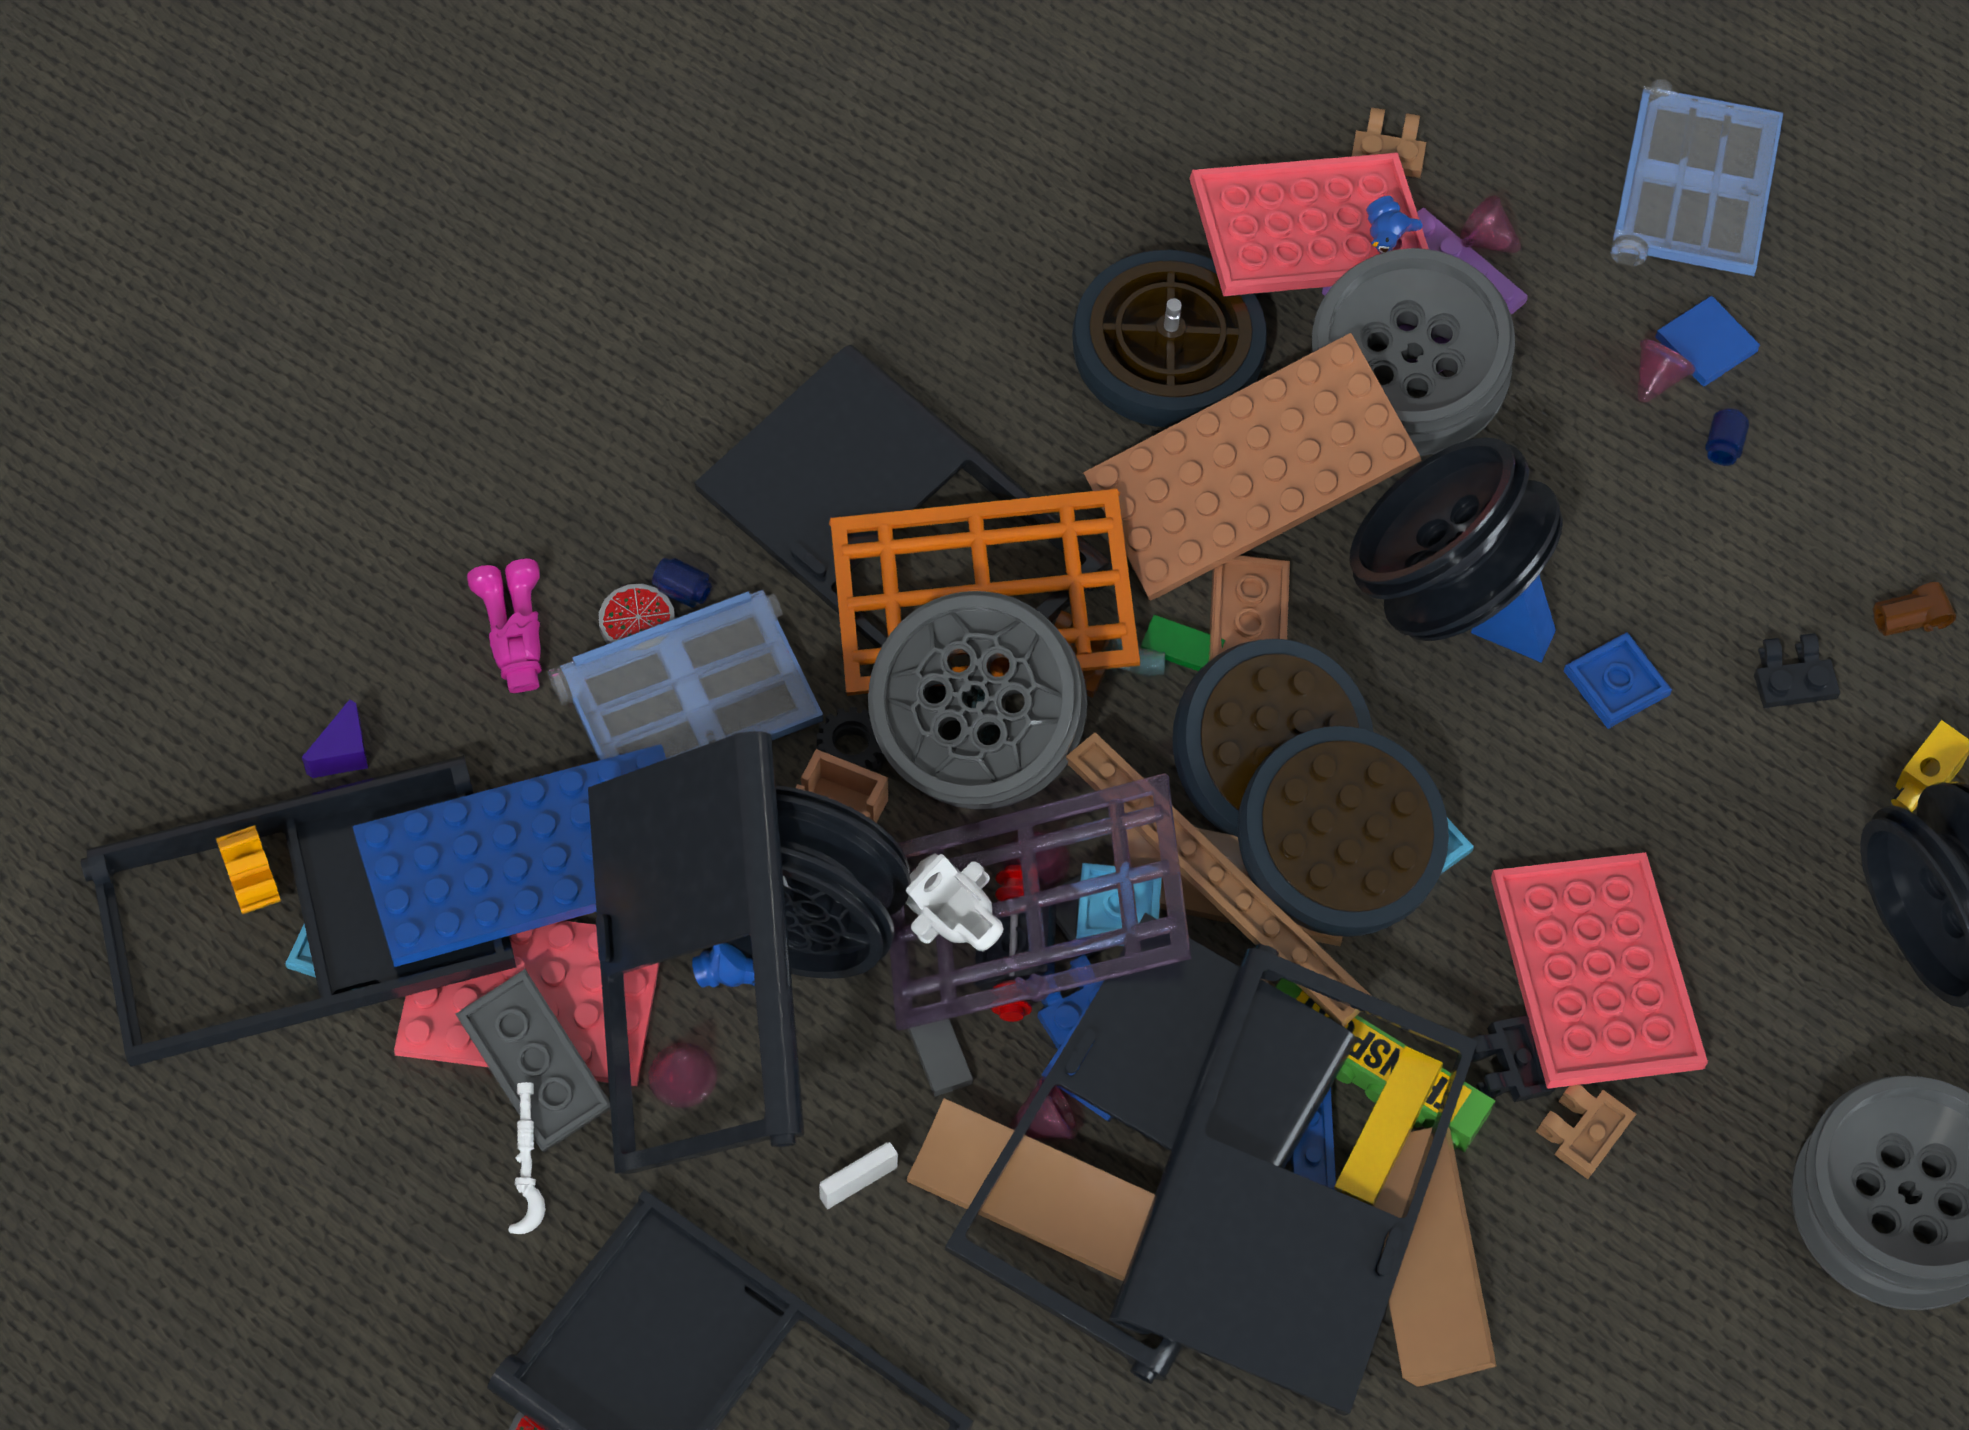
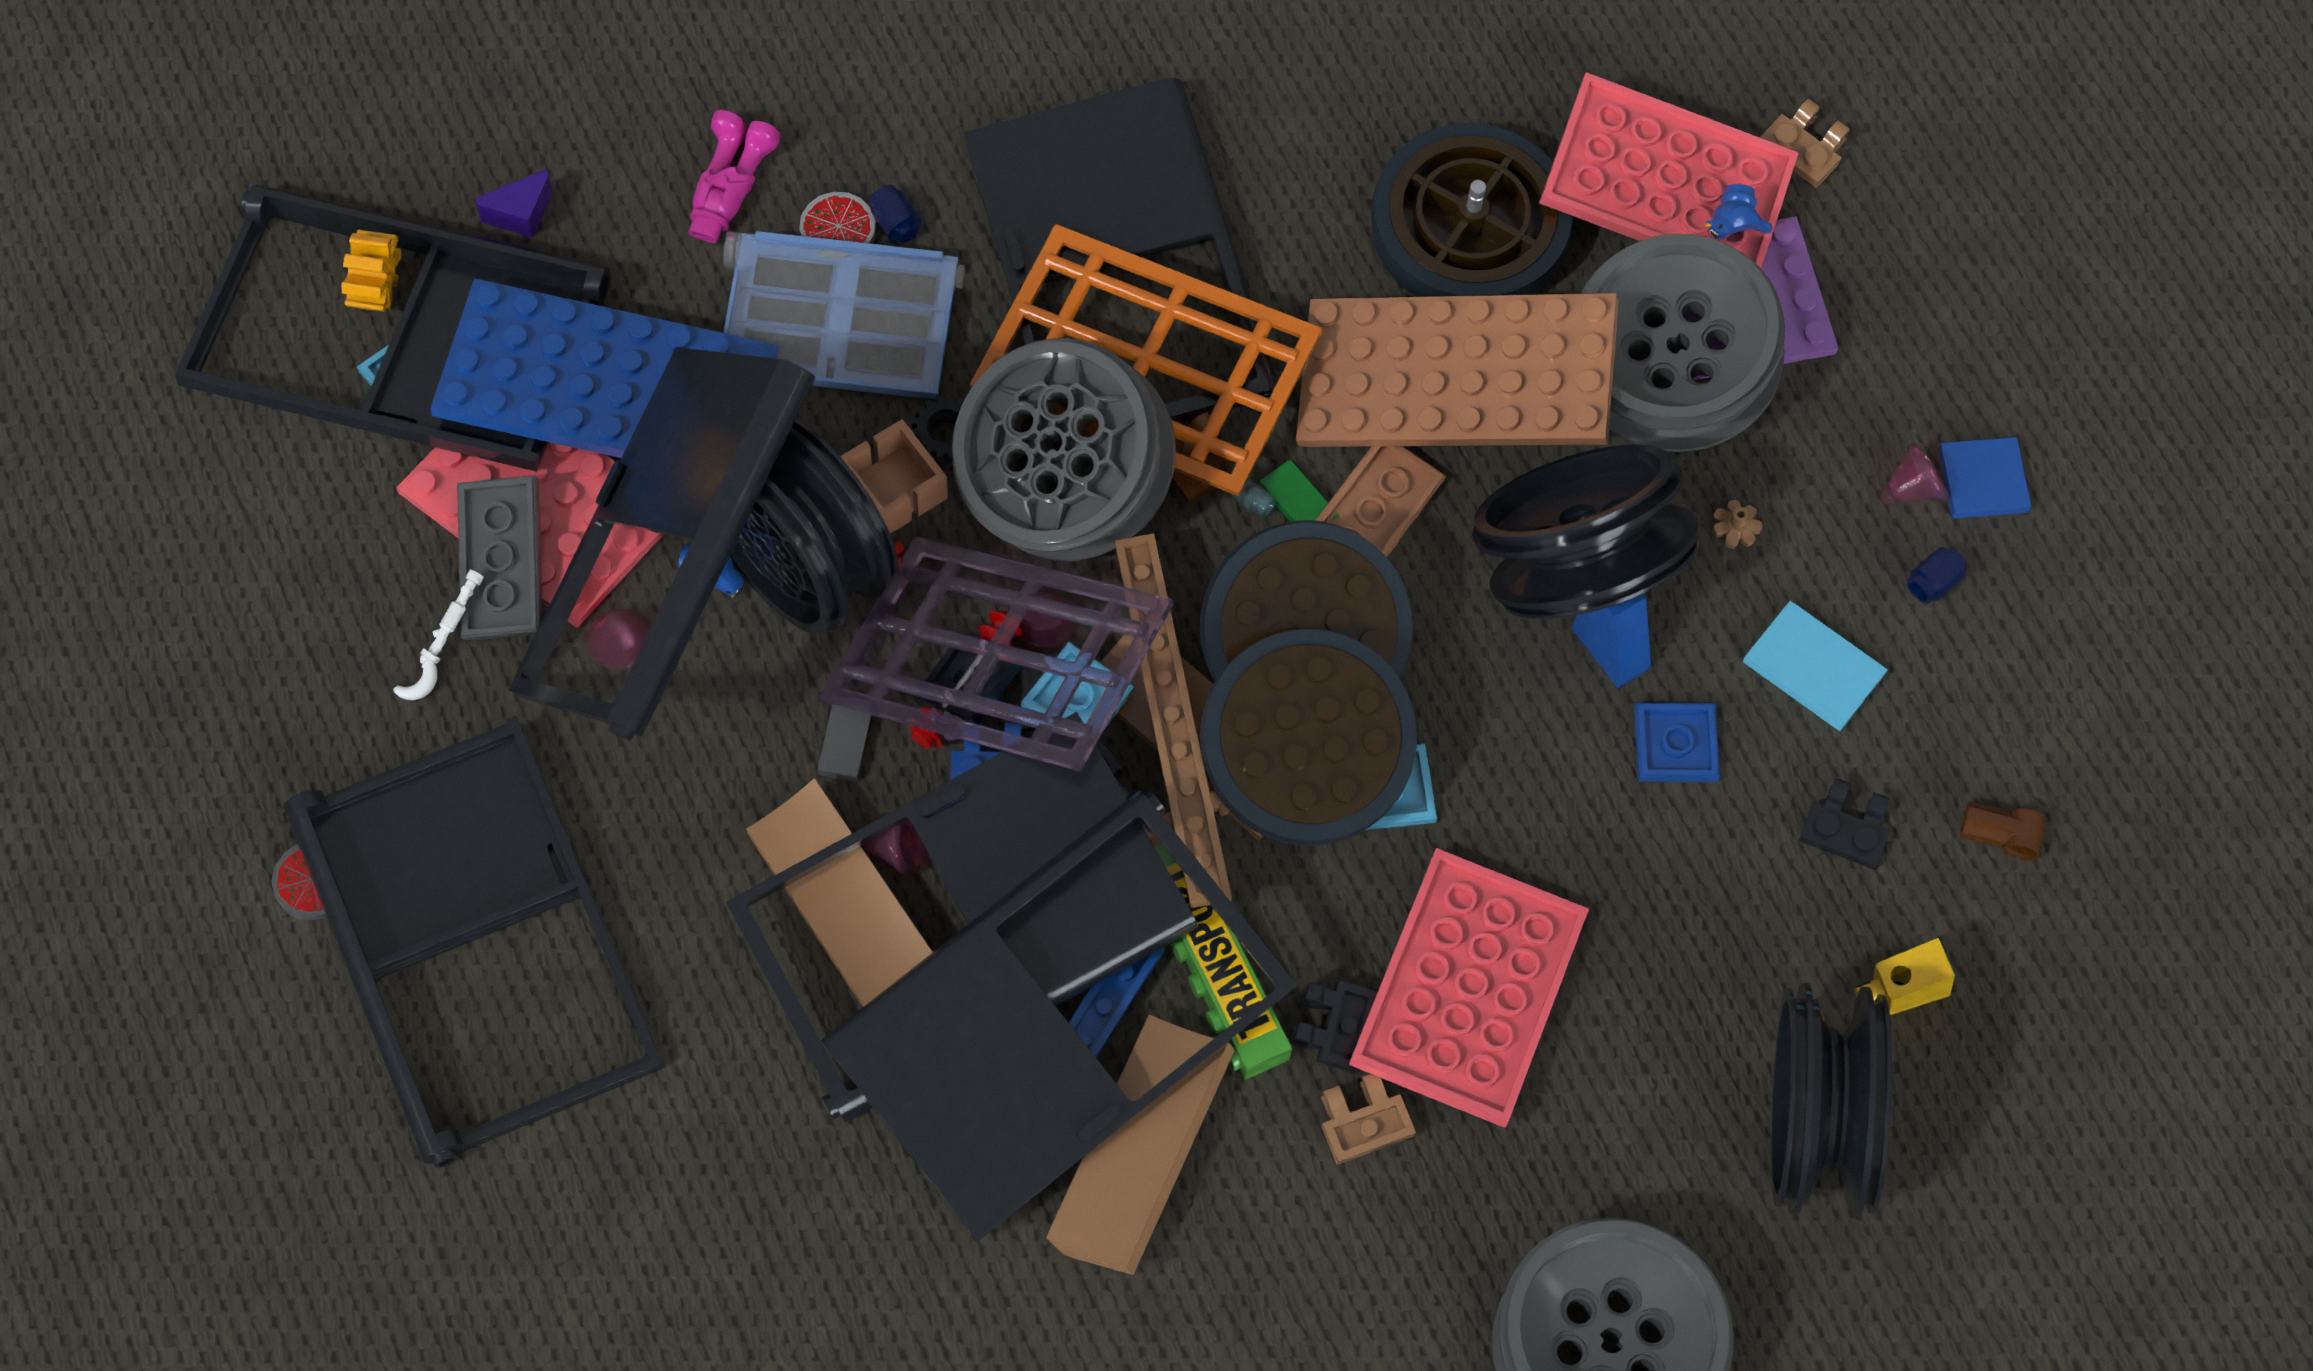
camera: 30 degrees right, 5 degrees up
(858, 1175) = (704, 804): white tile -> none
(952, 903) = (920, 611): white piece -> none
(1388, 1126) = (1179, 1017): yellow tile -> none
(1490, 228) = (1845, 269): clear pink hat -> none
(1548, 474) = (1736, 524): none -> medium nougat plant
(1681, 560) = (1815, 665): none -> medium azure tile
(1696, 181) = (2079, 322): clear door -> none

